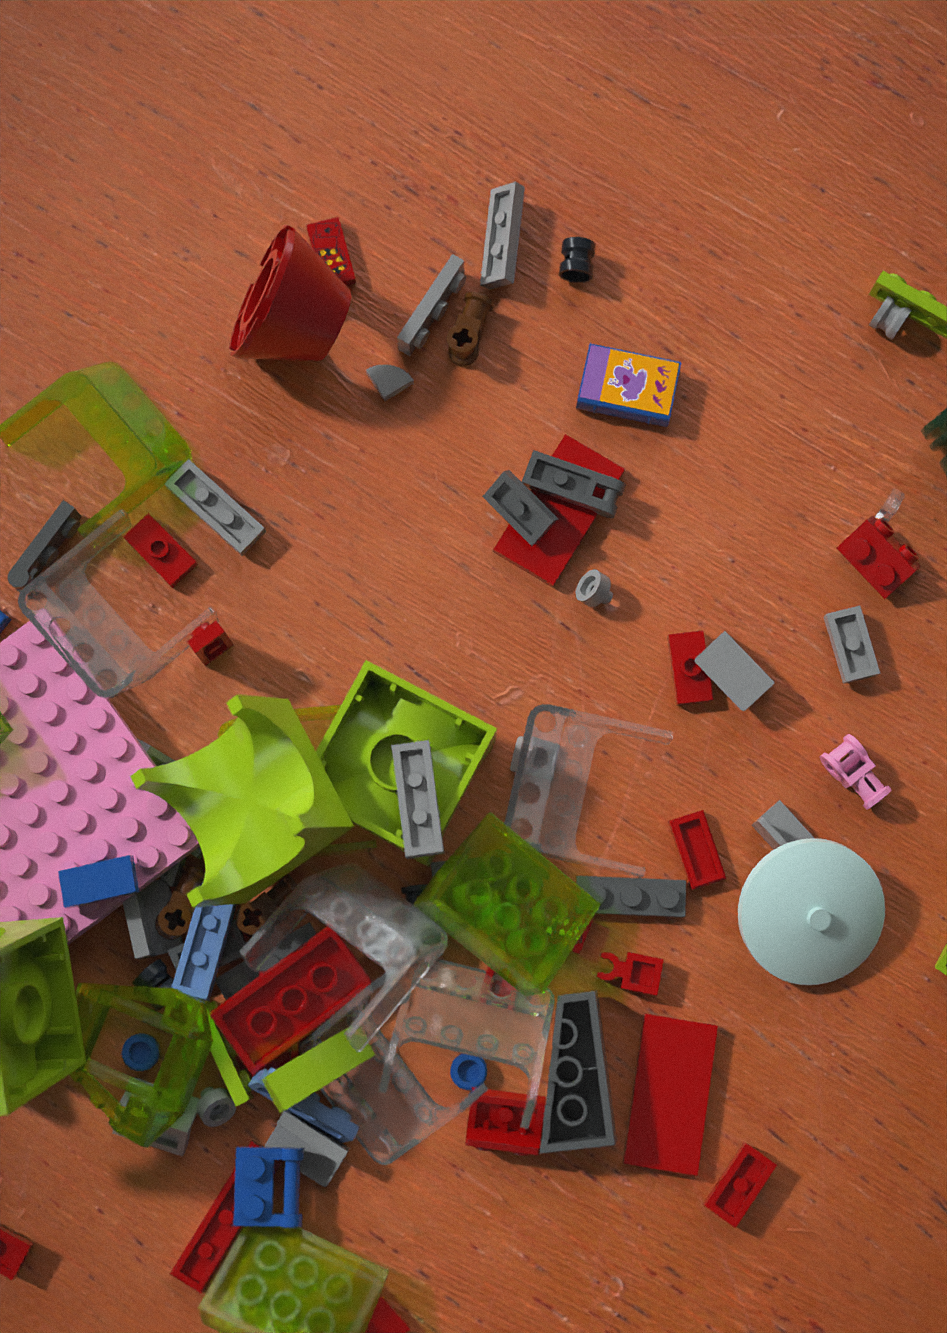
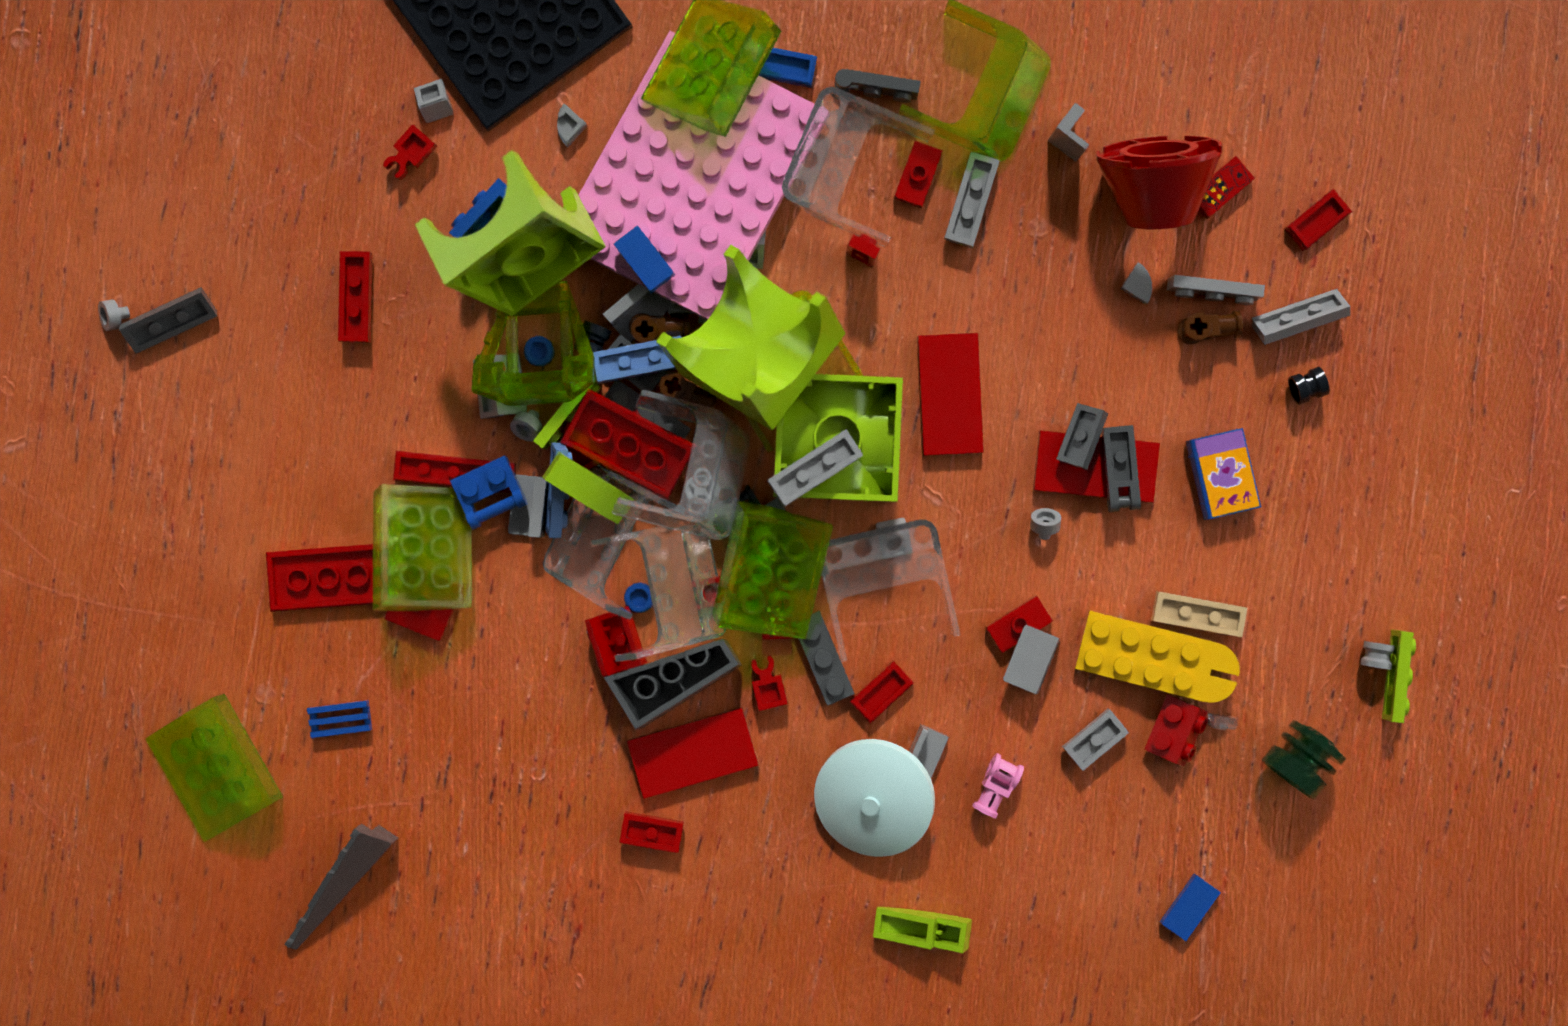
camera: 70 degrees right, 10 degrees up
(201, 380) = (1067, 140): none -> light grey panel
(409, 625) = (950, 394): none -> red tile
(412, 176) = (1318, 220): none -> red tile
(764, 476) = (1199, 614): none -> tan plate
(792, 541) = (1156, 658): none -> yellow plate

